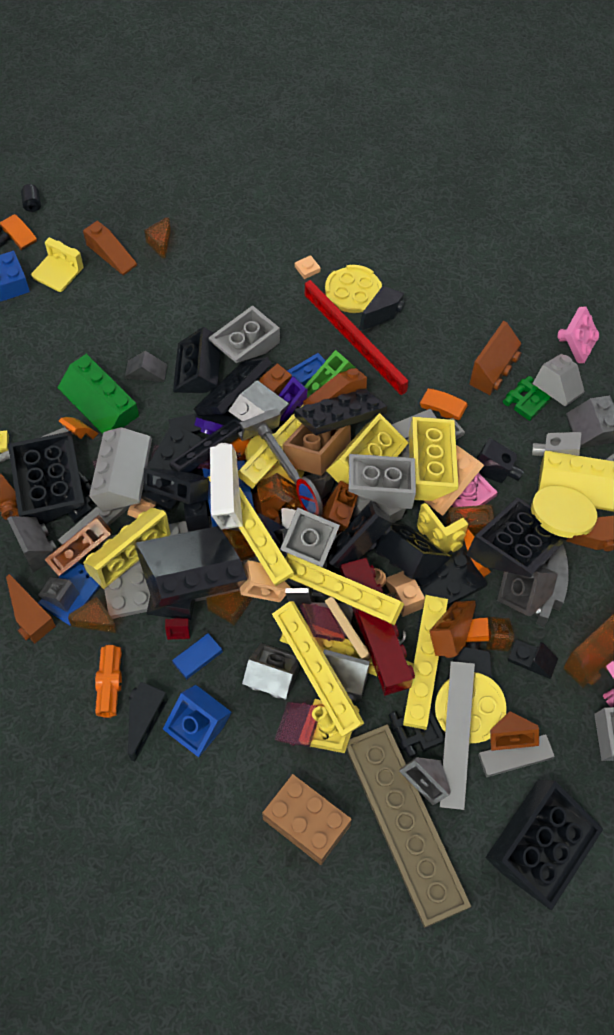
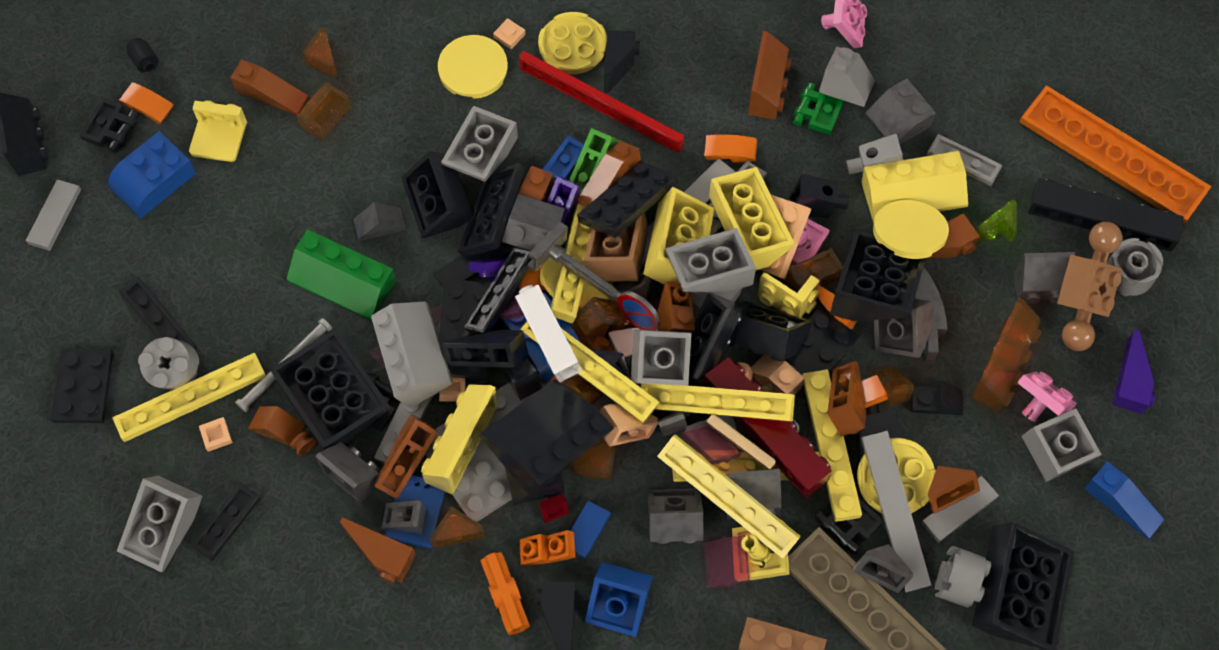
camera: 20 degrees left, 5 degrees up
(78, 427) = (338, 320): orange slope -> none
(142, 277) = (324, 111): none -> clear orange panel
(158, 659) = (547, 549): none -> orange slope
(269, 281) = (472, 66): none -> light yellow tile
(492, 812) = (962, 577): none -> light grey brick

